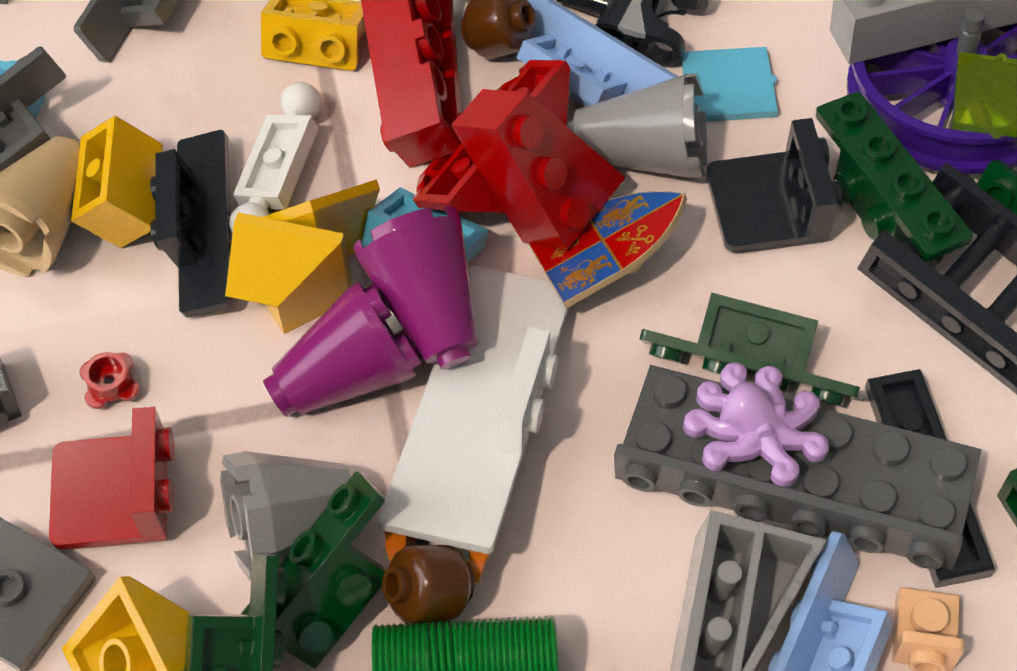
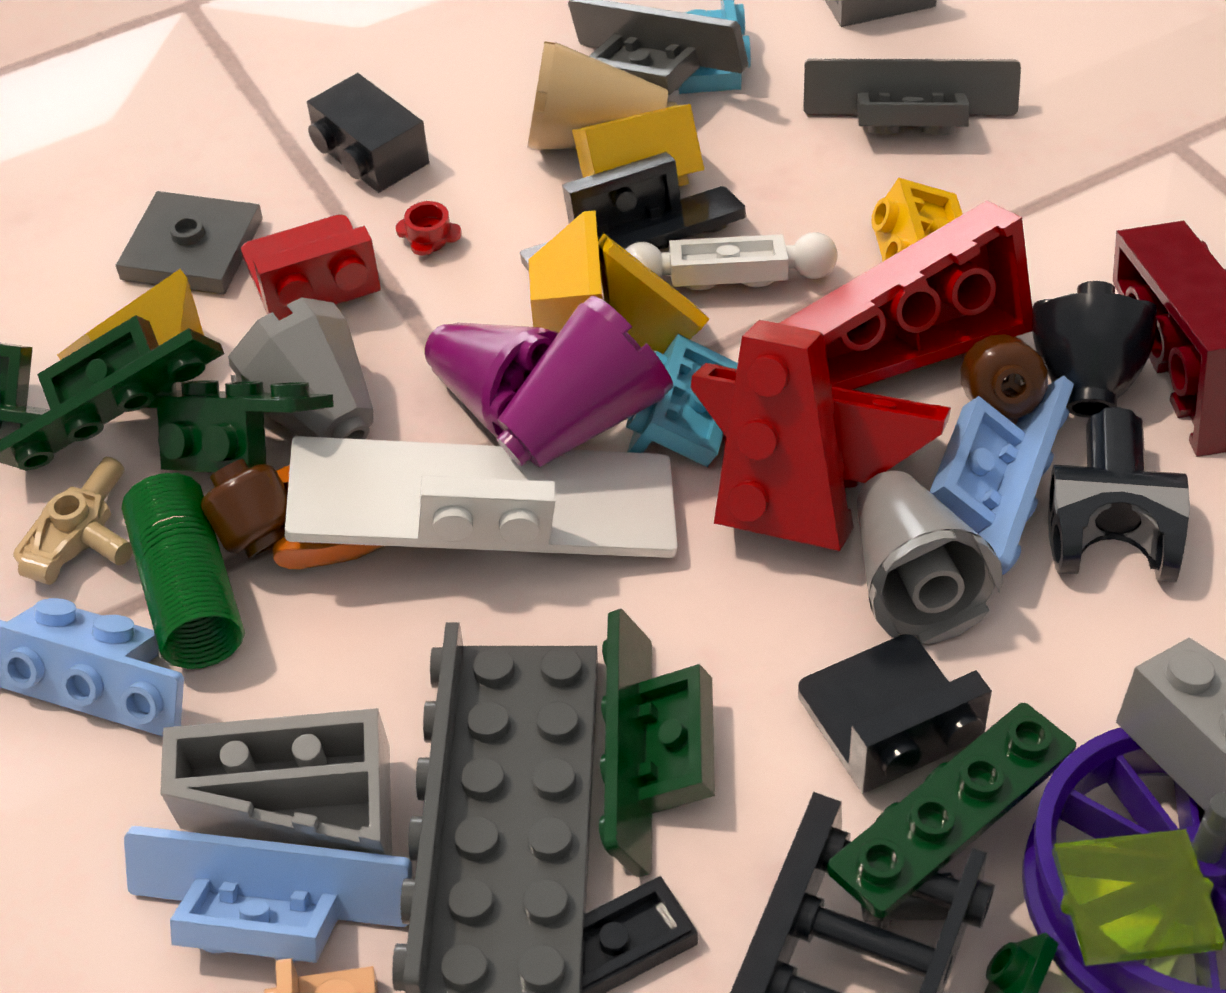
camera: 75 degrees right, 10 degrees down
(612, 244) = (733, 559): shield -> none
(733, 82) = (1060, 637): medium azure piece -> none
(755, 423) = (524, 741): lavender animal -> none

